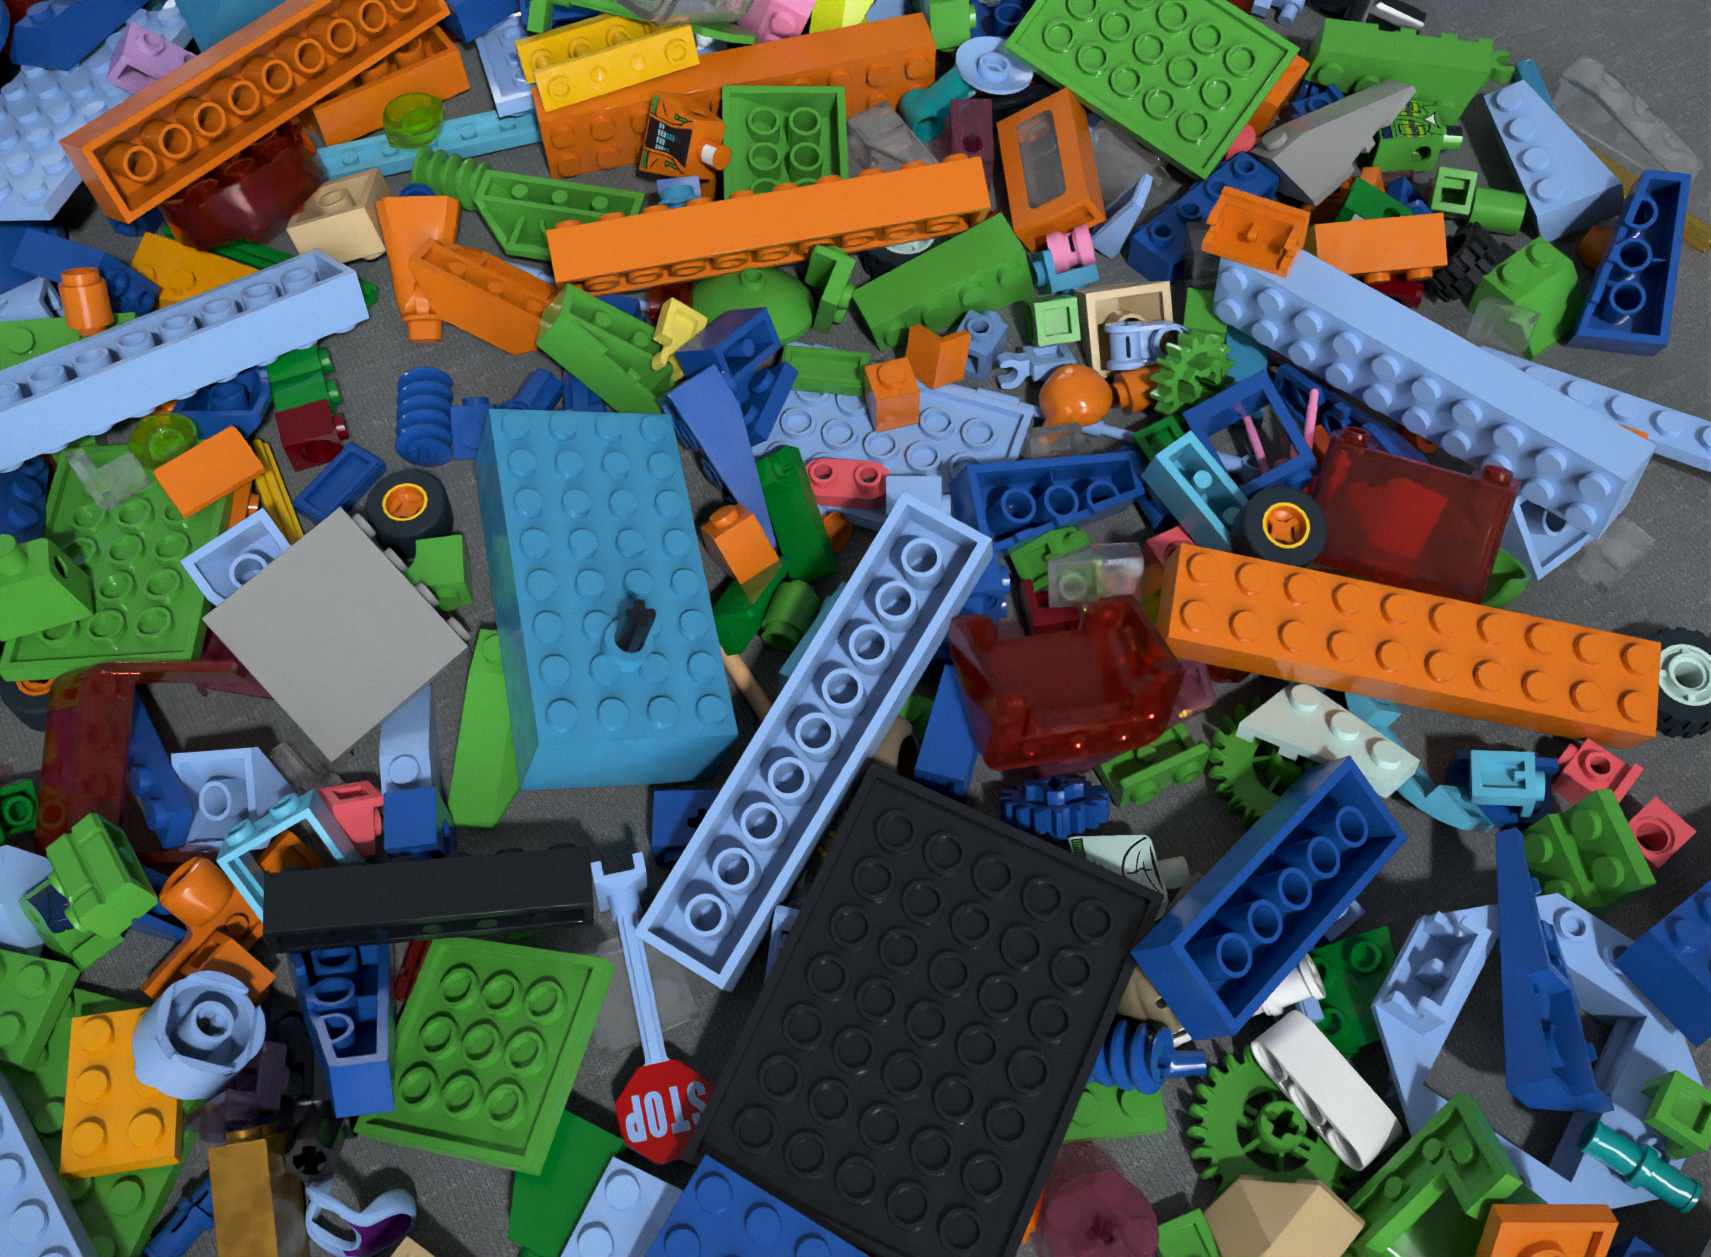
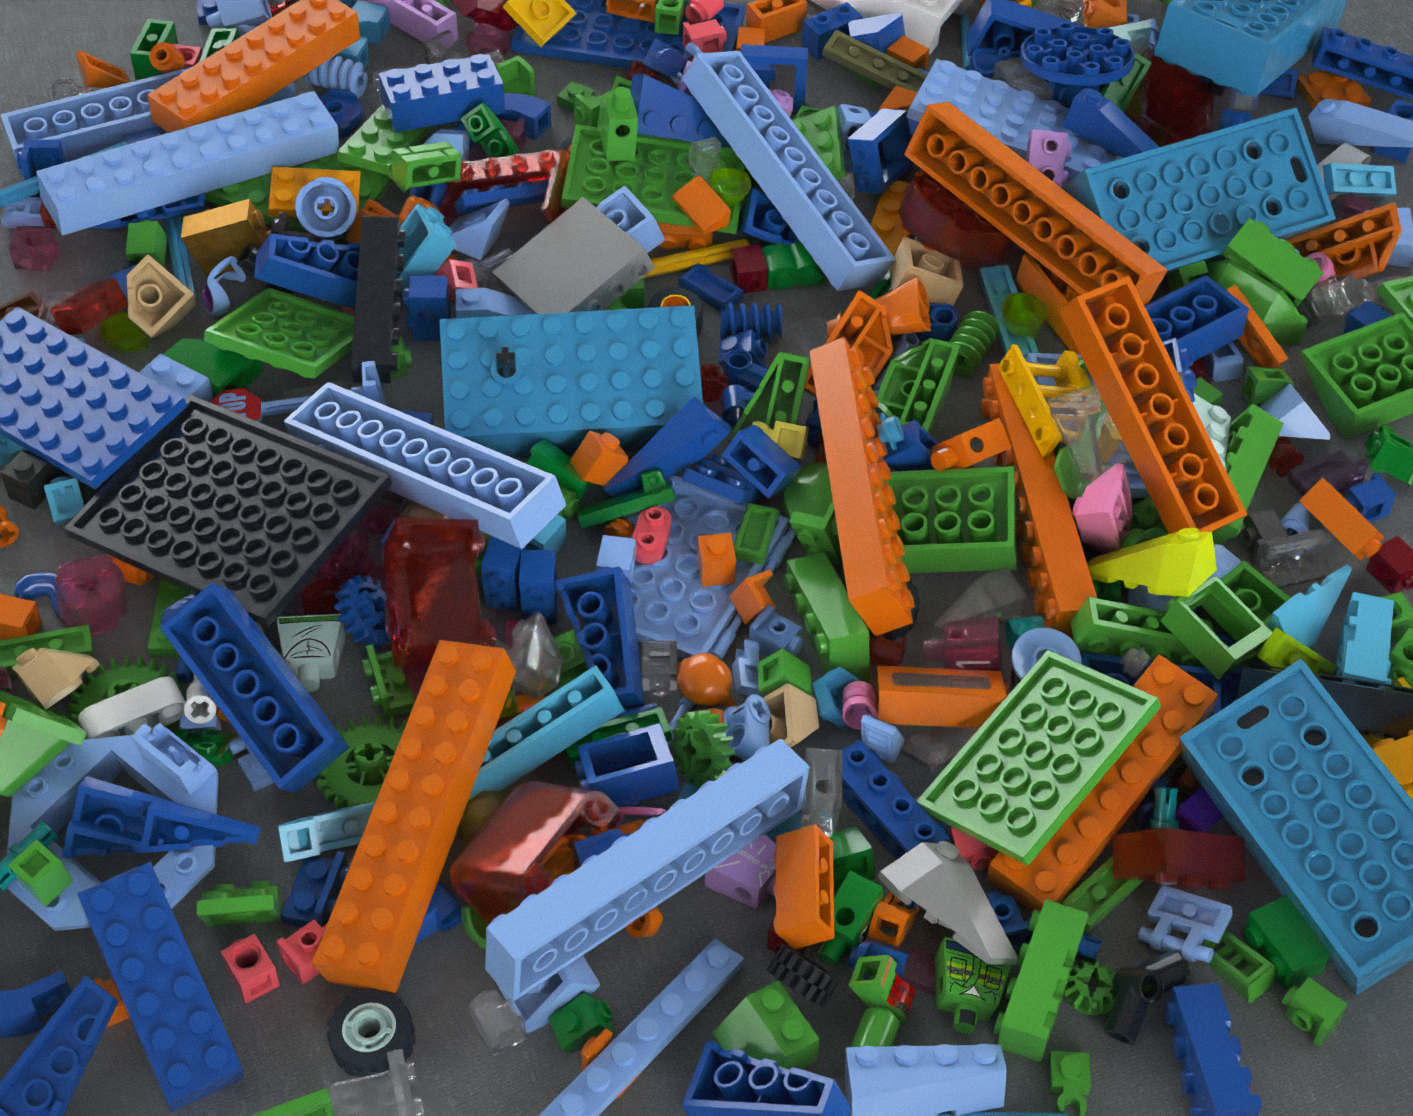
camera: 95 degrees right, 10 degrees down
(85, 300) = (833, 135): orange brick -> none
(1256, 231) = (784, 751): orange hinge -> none
(1291, 519) = (516, 731): black wheel -> none
(1318, 728) = (361, 769): light aqua wing -> none
(1502, 325) = (729, 983): clear panel -> none
(1505, 779) = (308, 868): medium azure bracket -> none

